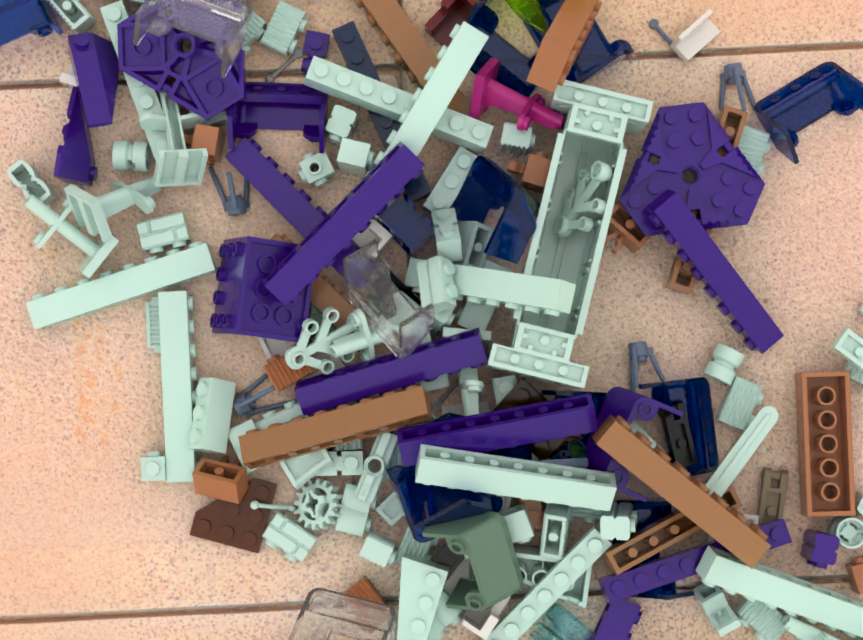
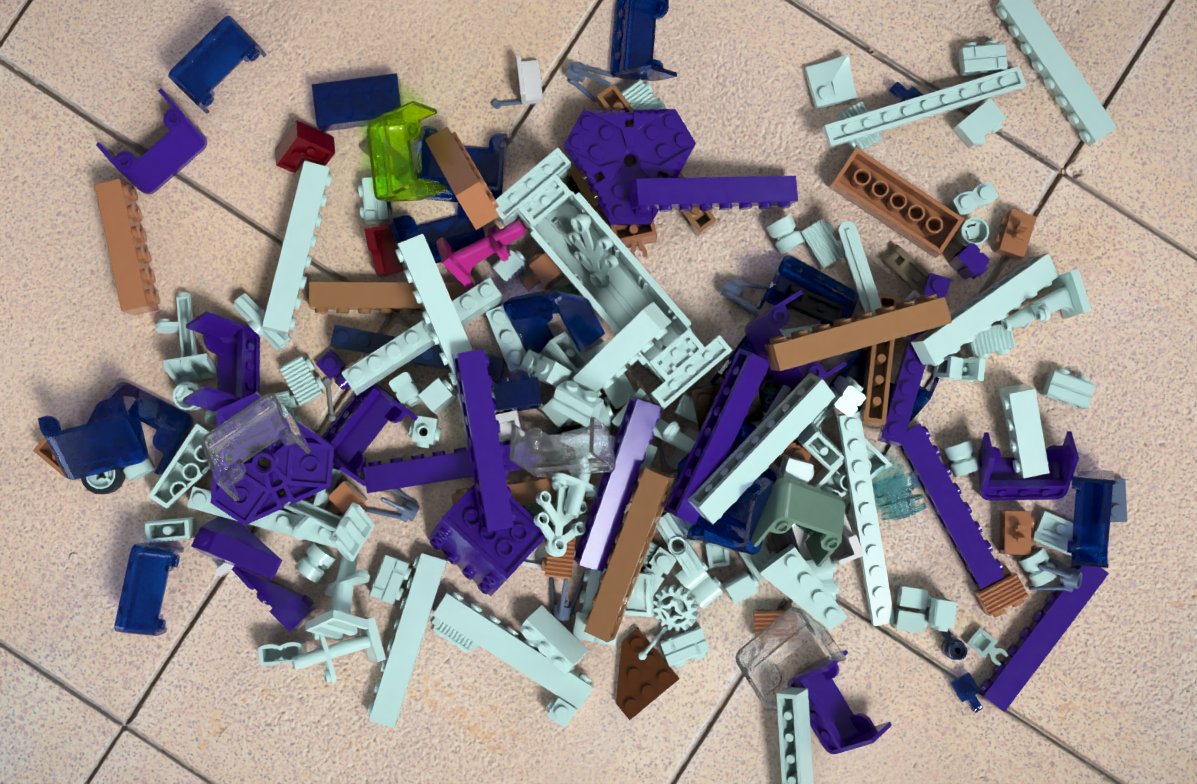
camera: 55 degrees left, 0 degrees up
(221, 479) = (606, 667): nougat brick -> none
(634, 143) = (577, 182): none -> dark brown plate

